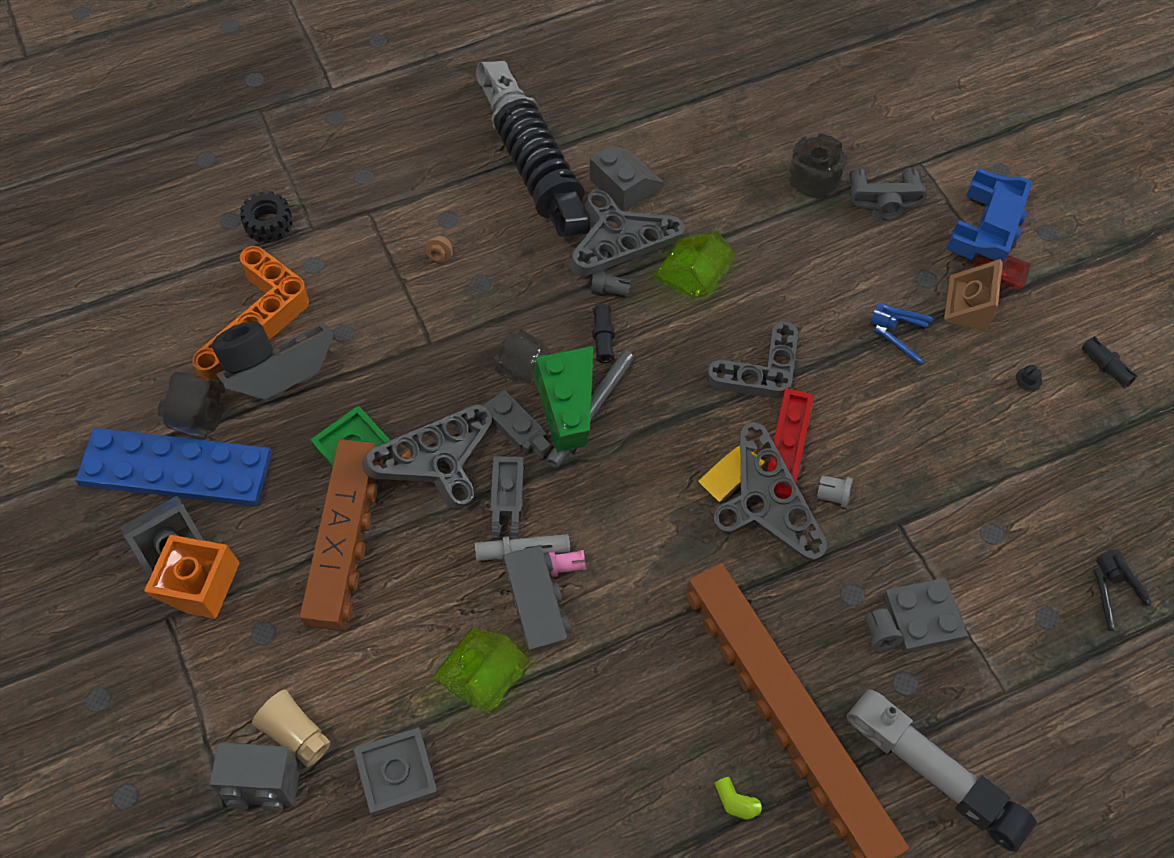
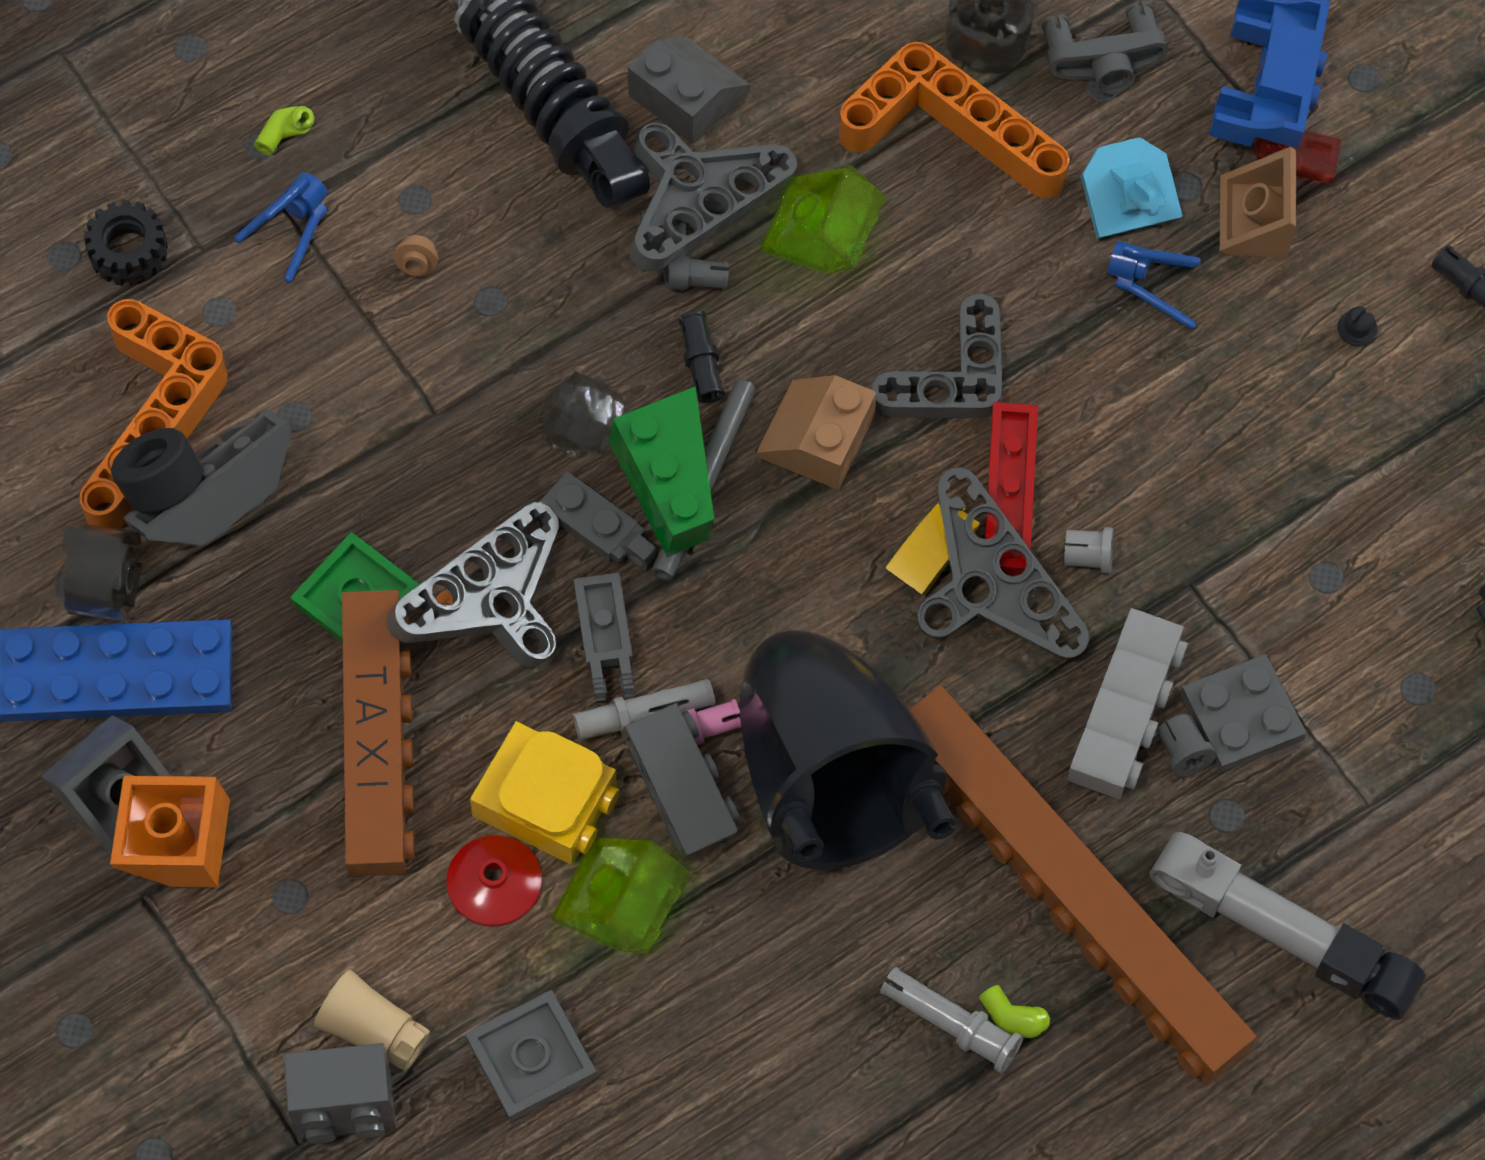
camera: 10 degrees left, 5 degrees up
(377, 207) = (299, 199): none -> blue plant
(378, 165) = (284, 124): none -> lime arm
(403, 658) = (500, 900): none -> red dish
(445, 591) = (546, 792): none -> yellow brick
(642, 599) = (835, 755): none -> black windscreen
(671, 388) = (819, 428): none -> medium nougat slope
(705, 806) = (971, 1030): none -> light grey pin
(793, 211) = (955, 113): none -> orange beam
(845, 597) = (1126, 703): none -> light grey brick
(891, 273) = (1129, 187): none -> medium azure piece

